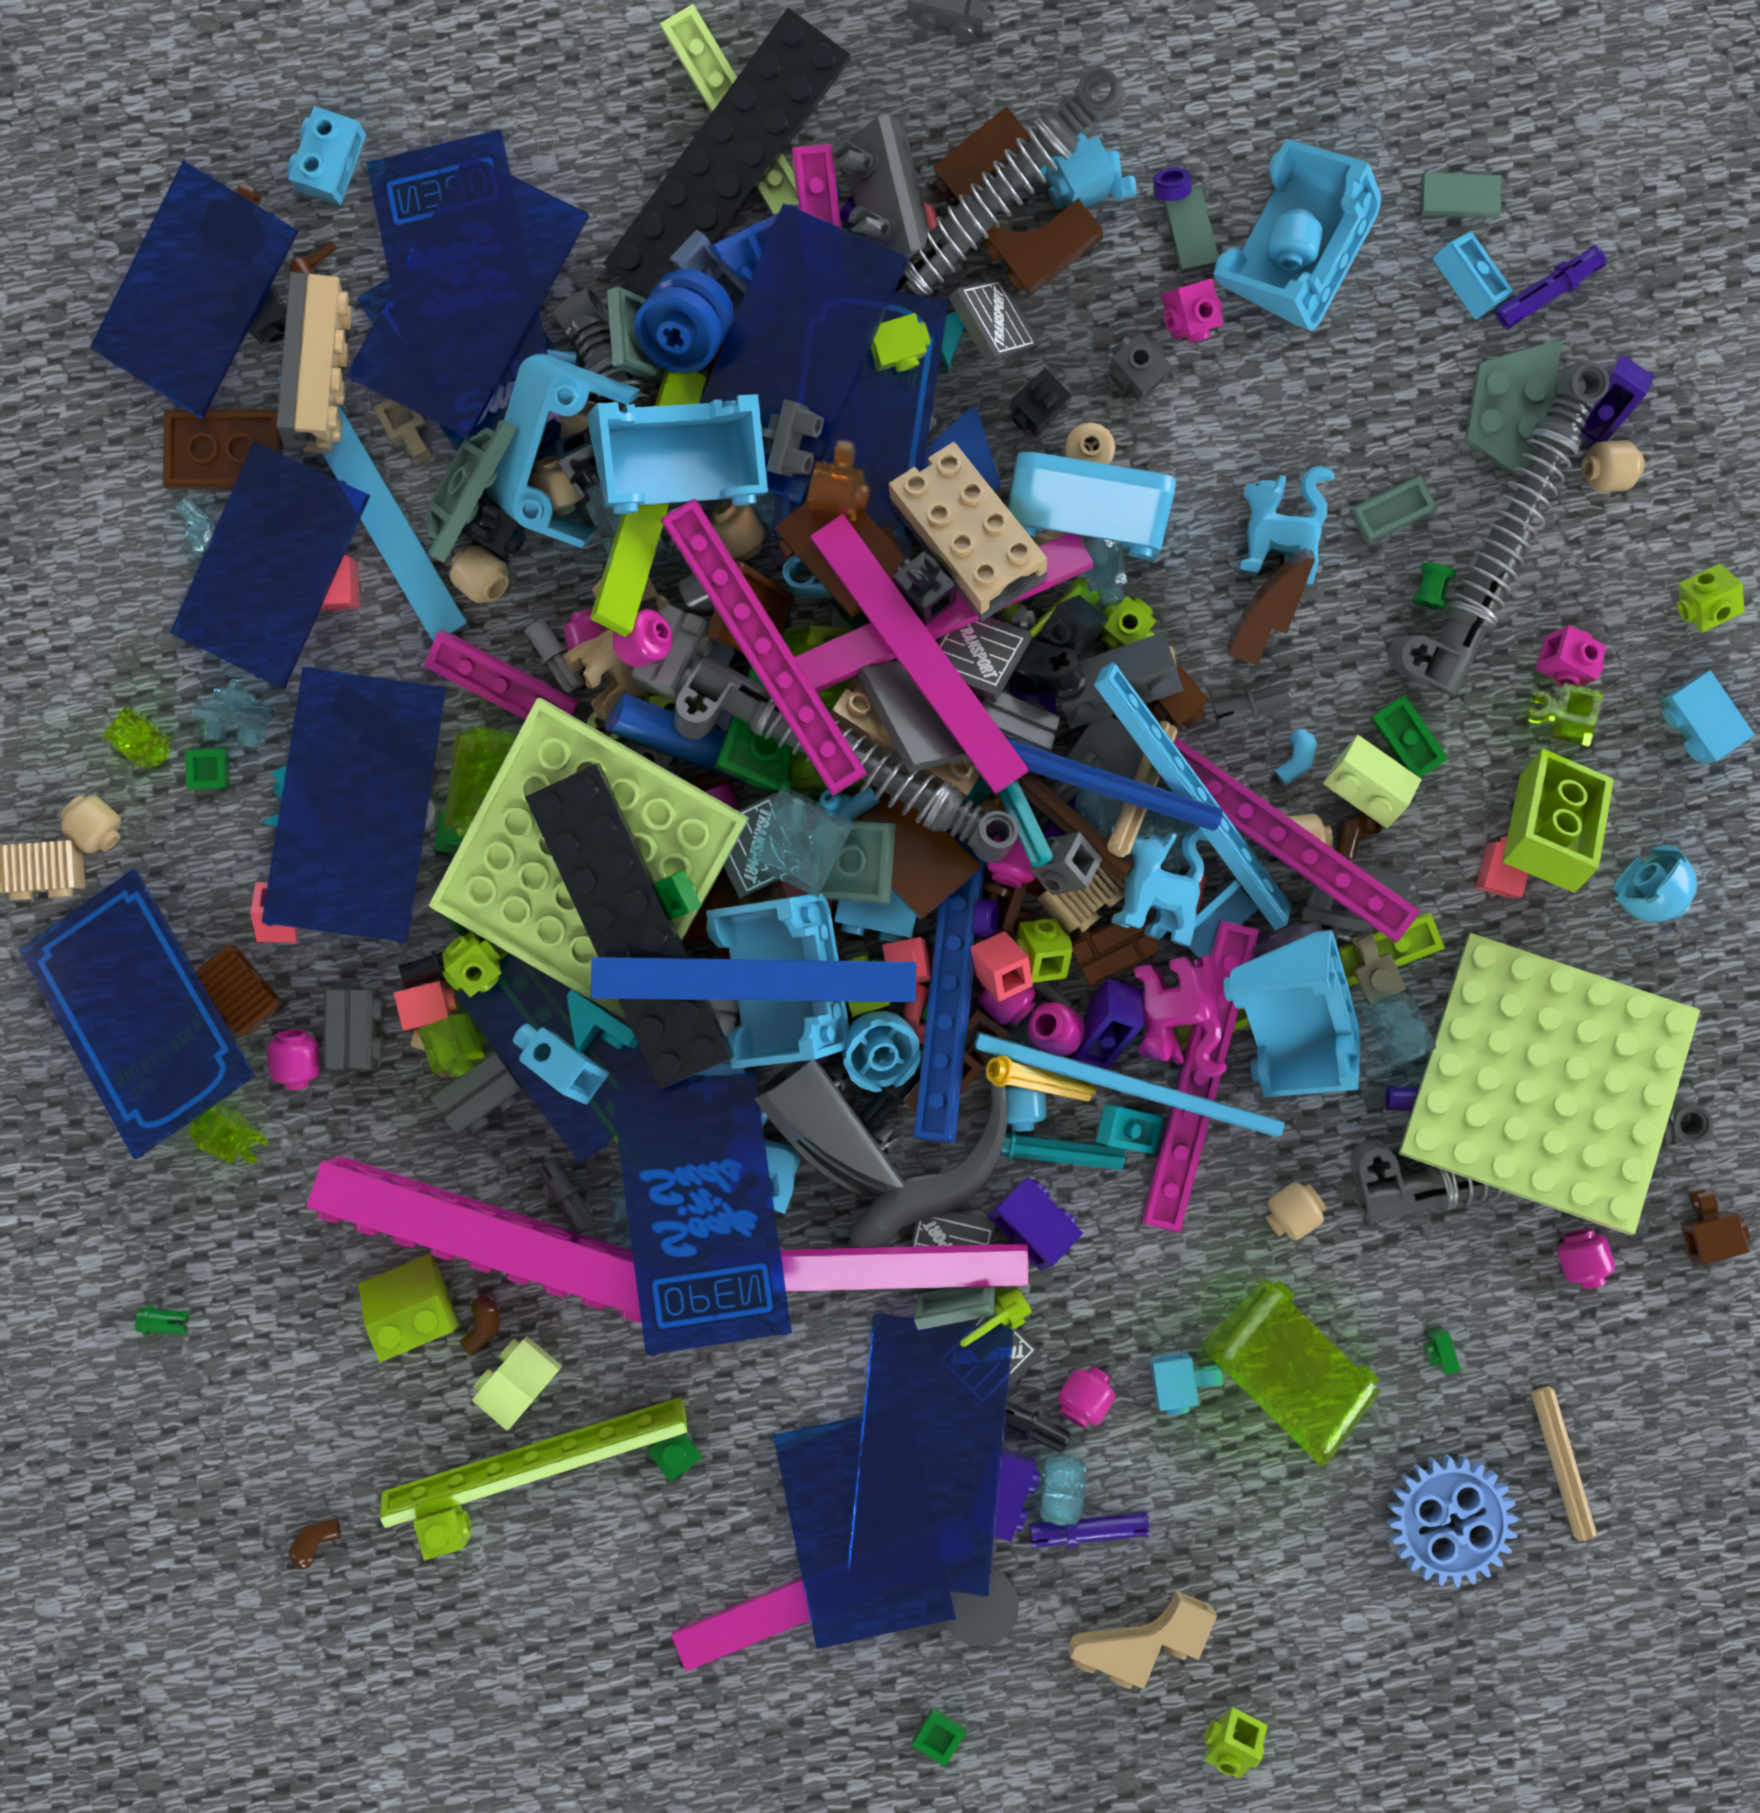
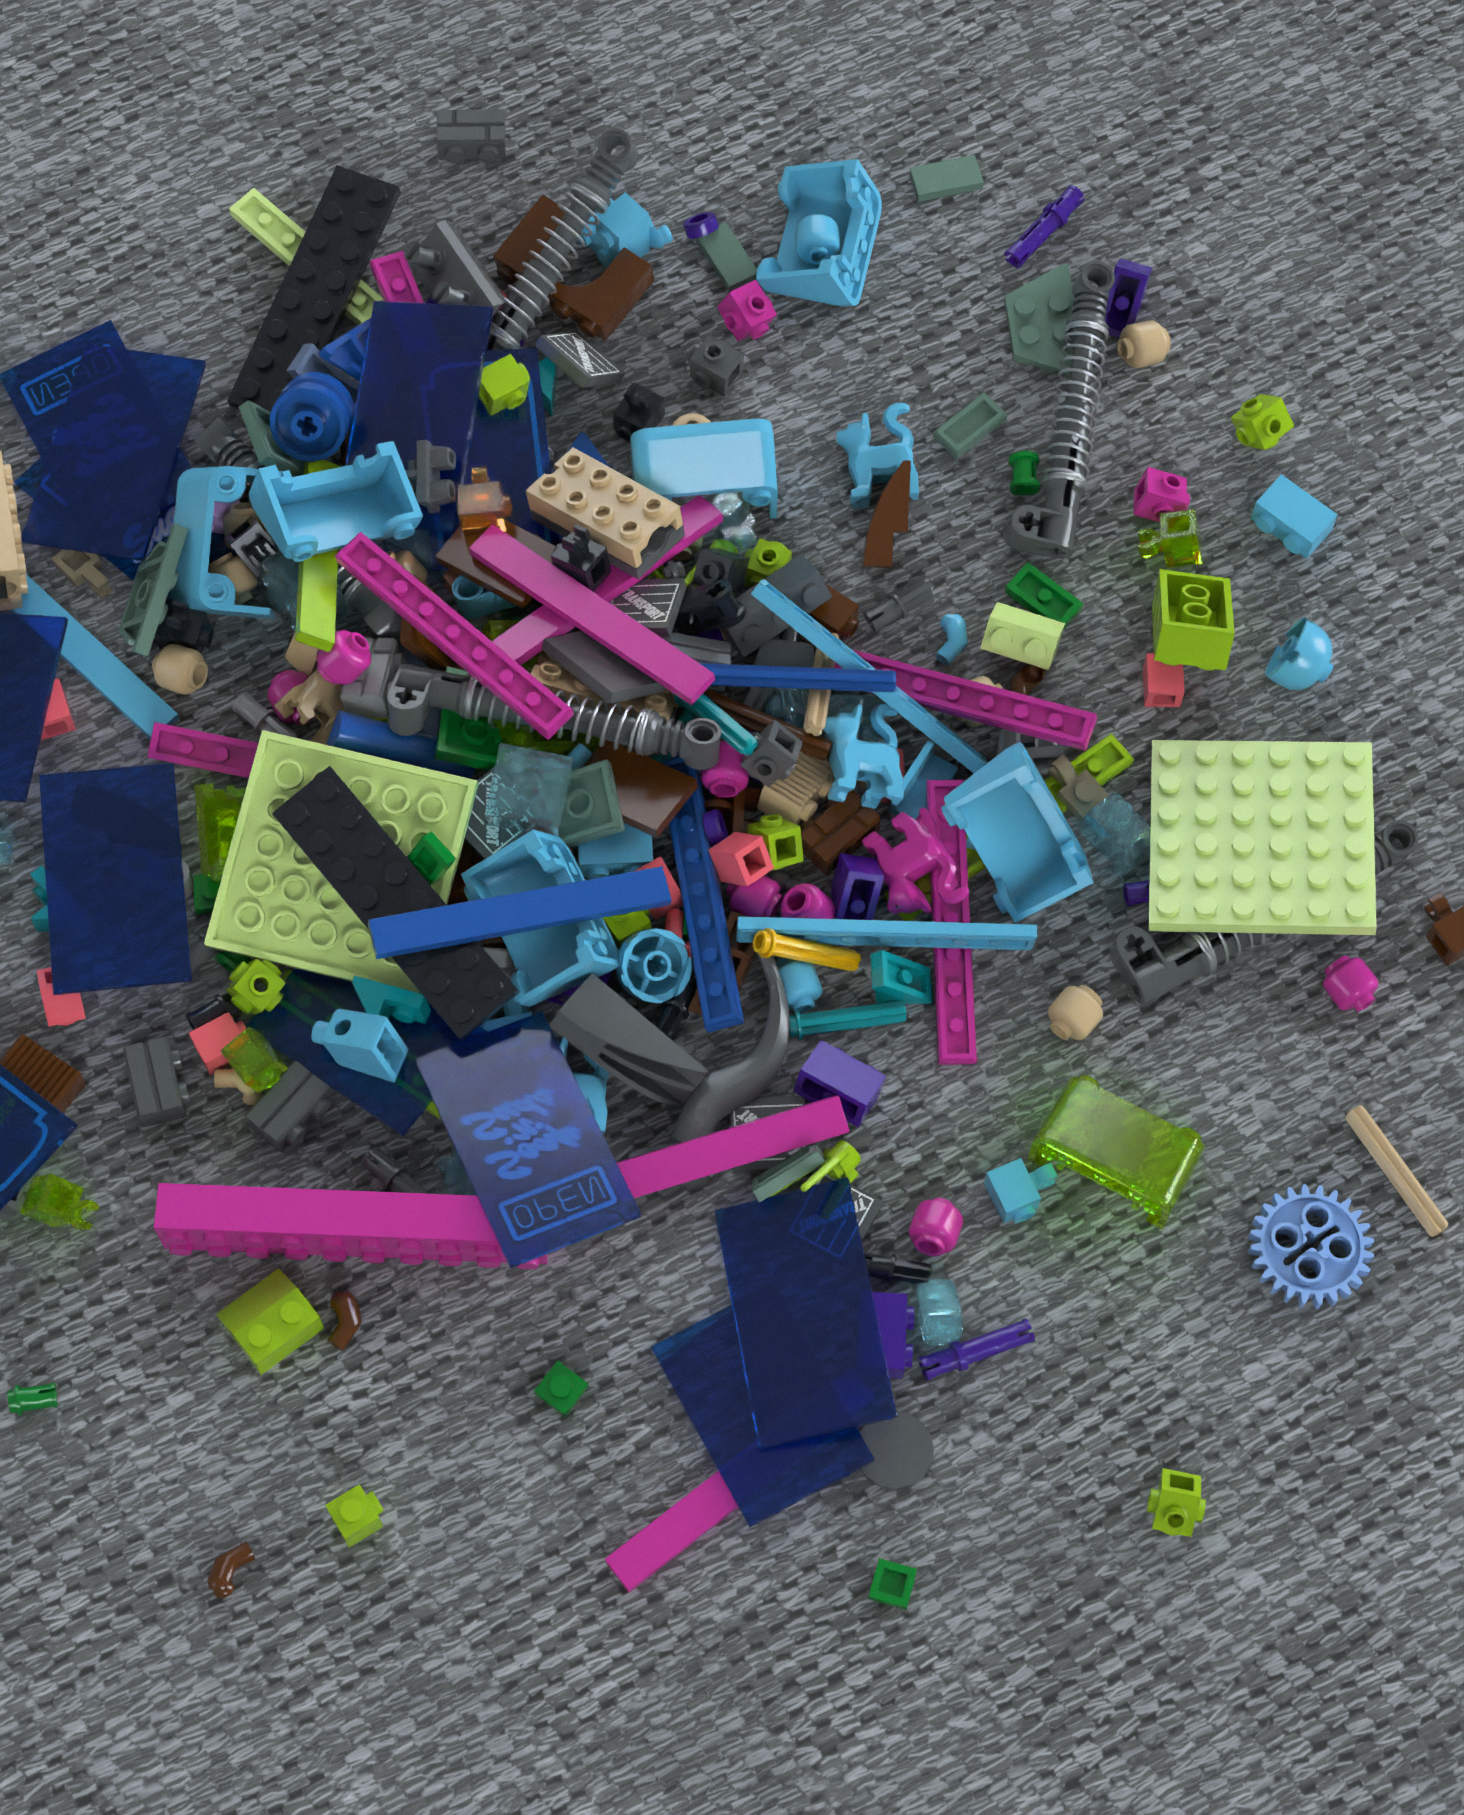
camera: 15 degrees left, 20 degrees down
(293, 1059) = (106, 1122): dark pink head -> none
(516, 1382) = (391, 1359): yellowish green brick -> none
(533, 1462) = (426, 1428): lime tile -> none
(1132, 1651) = (1052, 1449): tan arch -> none
(1440, 1351) = (1248, 1097): green plate -> none
(1473, 275) = (976, 234): medium azure slope -> none

